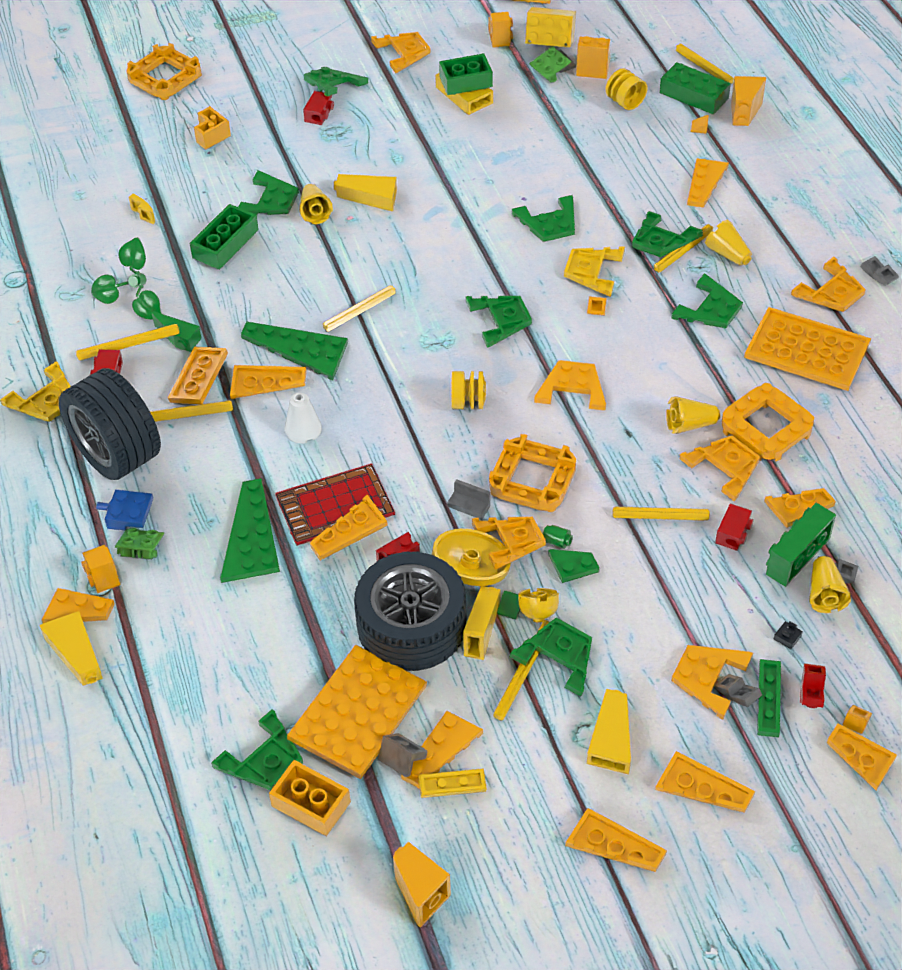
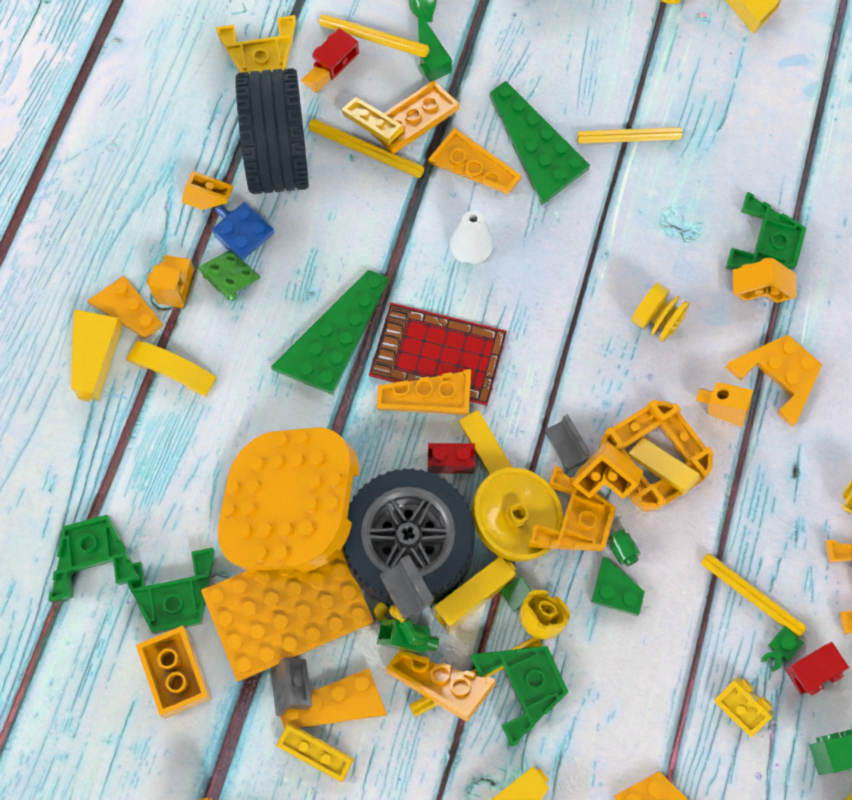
camera: 35 degrees right, 20 degrees up
(80, 499) = (205, 191): none -> light orange slope
(143, 620) = (172, 366): none -> yellow slope
(171, 390) = (372, 120): none -> yellow plate
(177, 764) = (88, 546): none -> green wing
(306, 636) = (288, 500): none -> light orange plate
(425, 538) = (486, 445): none -> yellow tile
(438, 620) = (407, 588): none -> flat silver panel
(455, 667) = (402, 632): none -> green torso
(508, 490) = (608, 468): none -> light orange brick
(511, 682) = (448, 687): none -> light orange wing
(518, 335) = (764, 279): none -> light orange brick
(544, 473) = (664, 465): none -> yellow tile
(554, 415) = (727, 402): none -> light orange torso
(704, 531) = (784, 646): none -> green plate
(708, 575) = (745, 706): none -> yellow bracket

